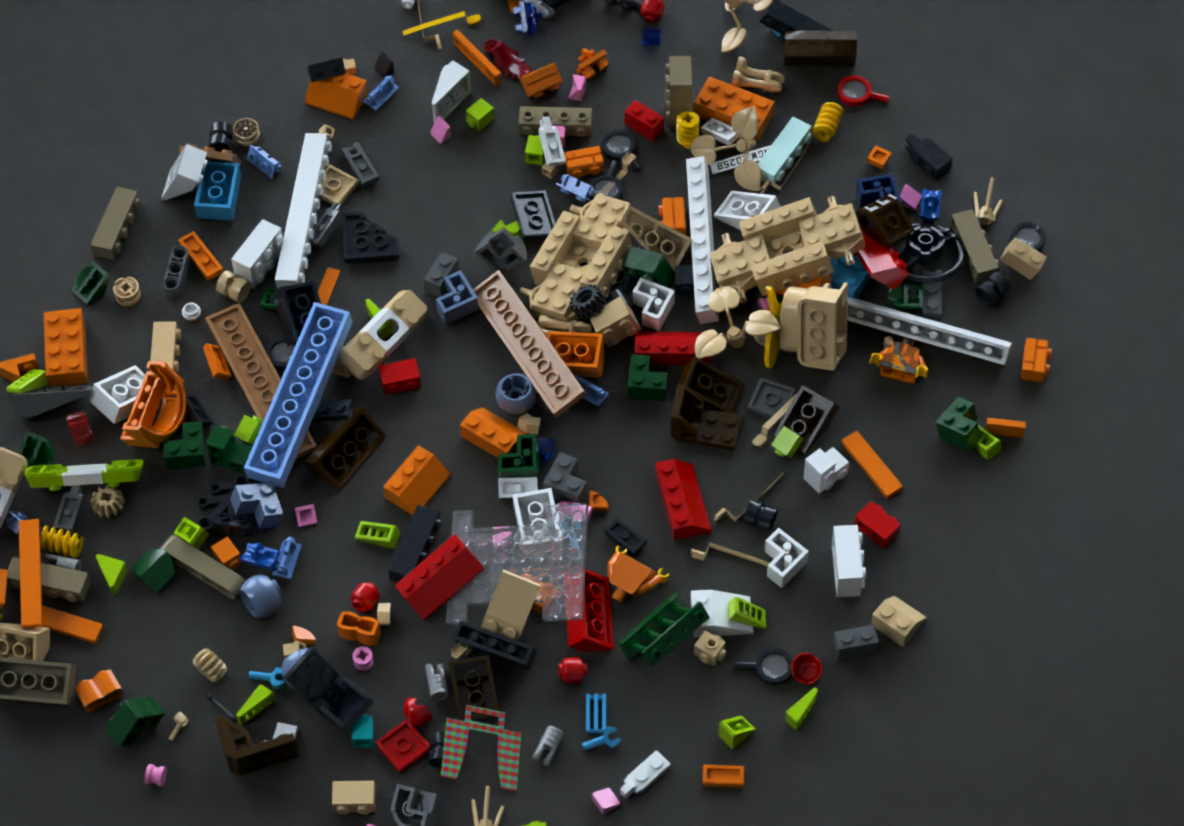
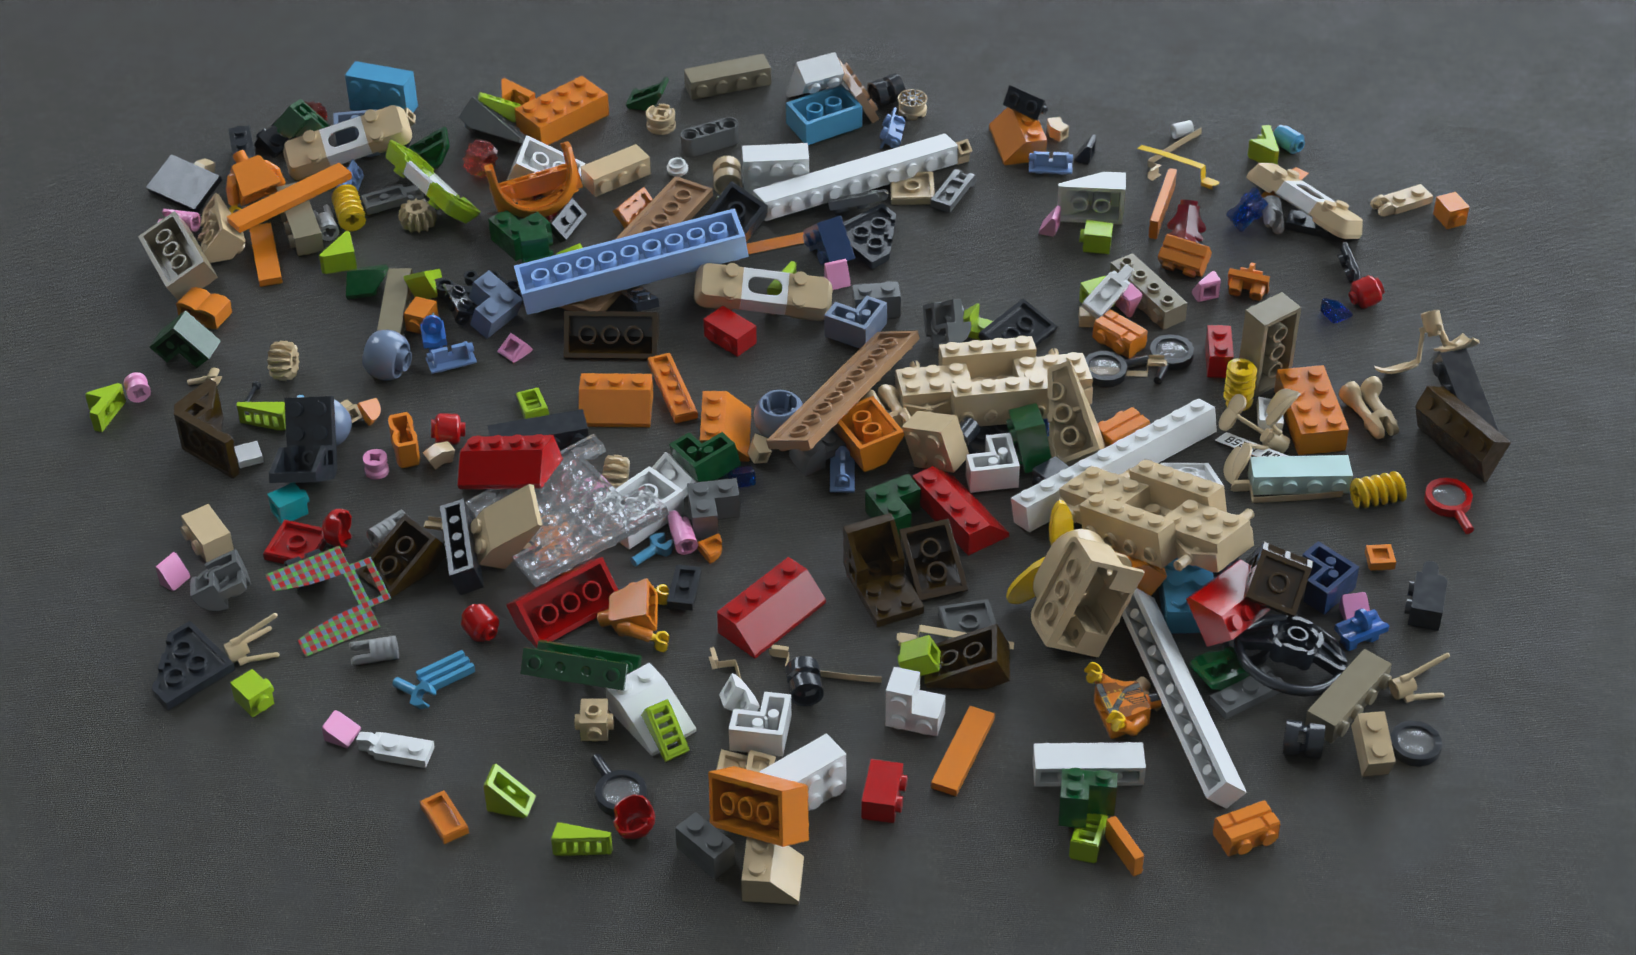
camera: 55 degrees right, 15 degrees down
(157, 803) = (104, 405): none -> lime slope
(201, 256) = (748, 135): orange plate -> none
(361, 264) = (830, 240): none -> dark blue brick
(392, 282) = (837, 273): none -> bright pink slope
(432, 442) = (672, 388): none -> orange tile
(495, 516) = (616, 470): none -> tan gear
(570, 185) = (1079, 339): medium blue hinge -> none
(587, 301) = (930, 399): black tyre -> none
(748, 559) = (737, 695): none -> white slope
(759, 324) = (1019, 540): tan plant -> none
(802, 587) = (754, 761): none -> tan slope
(864, 594) = (759, 806): none -> orange brick
(931, 407) = (1121, 758): none -> white brick

